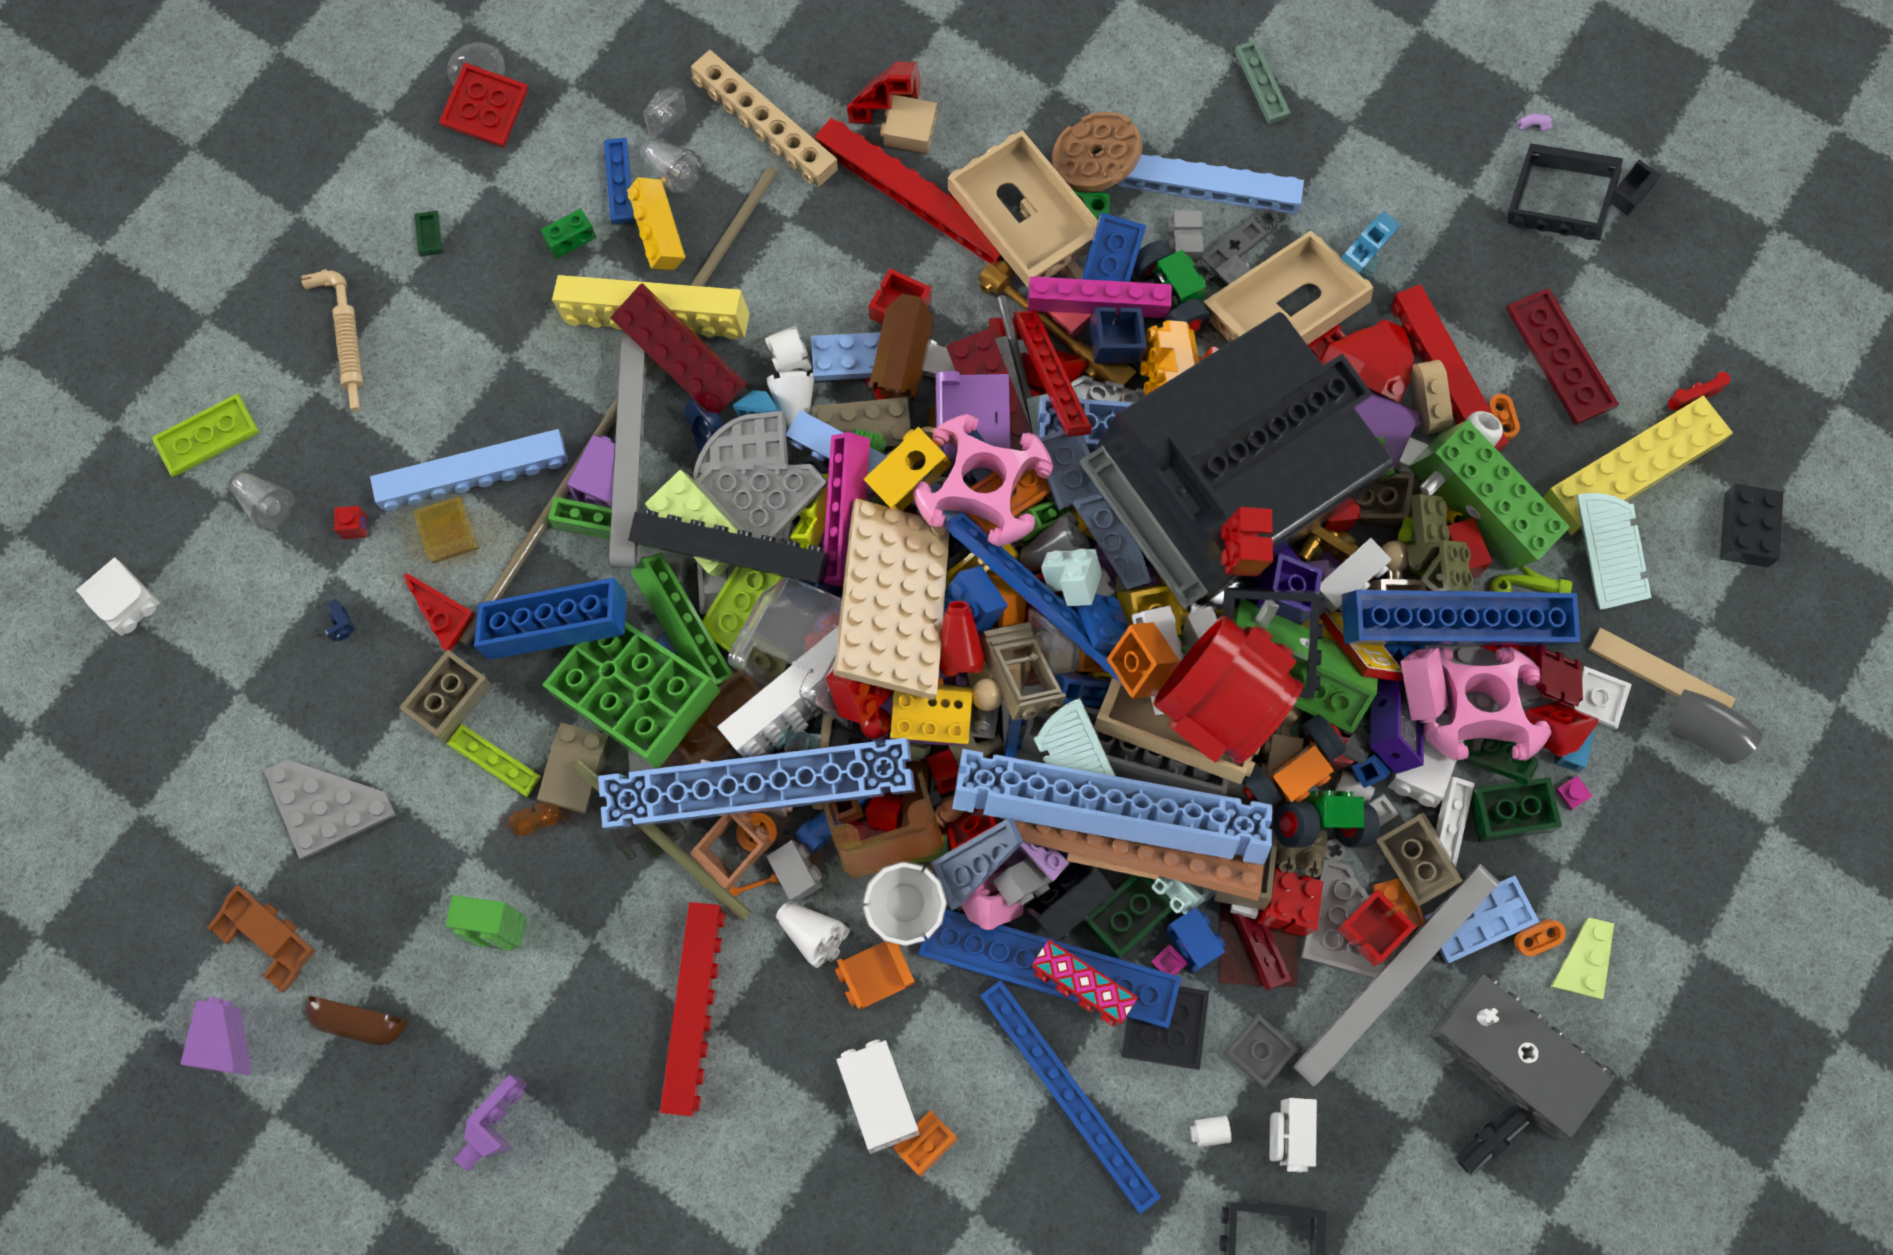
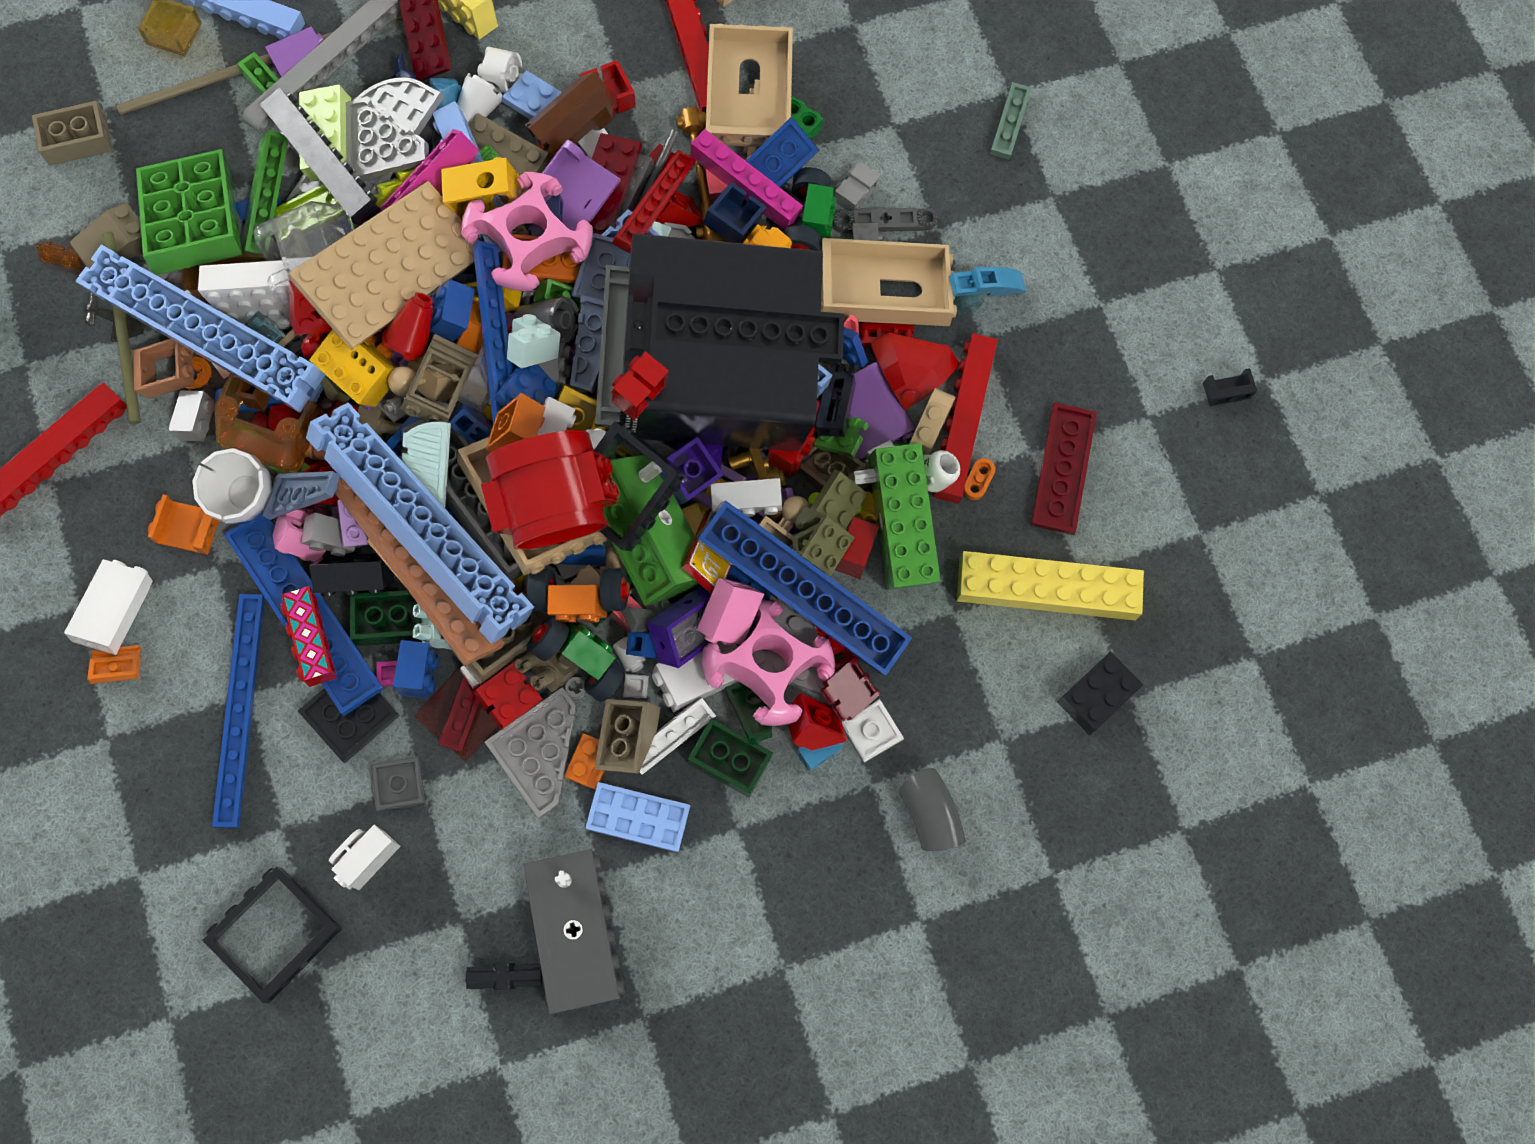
camera: 30 degrees right, 0 degrees up
(341, 620) = (54, 37): dark blue bracket -> none
(445, 615) = (122, 80): red wing -> none
(494, 760) = (69, 198): lime tile -> none
(551, 618) = (178, 128): blue brick -> none
(735, 891) = (145, 402): orange hinge -> none
(812, 932) = (165, 466): white cone -> none
(1101, 130) = (840, 84): medium nougat plate -> none
(1211, 1131) = (312, 810): white brick -> none
(1216, 184) = (907, 163): light blue brick -> none
(1374, 929) = (549, 758): red piece -> none
(1396, 975) = (537, 804): light grey beam -> none
(1530, 581) = (896, 611): lime plant -> none
(1535, 119) = (1195, 286): lavender arm -> none
(1538, 937) = (669, 865): orange plate -> none
(1570, 161) = (1190, 329): black window -> none
(1573, 793) = (790, 782): dark pink plate -> none
(1587, 962) = (691, 908): yellowish green wing -> none
(1613, 549) = (973, 630): light aqua piece -> none
(1652, 668) = (932, 743): tan tile -> none
(1683, 398) = (1151, 570): red plate -> none

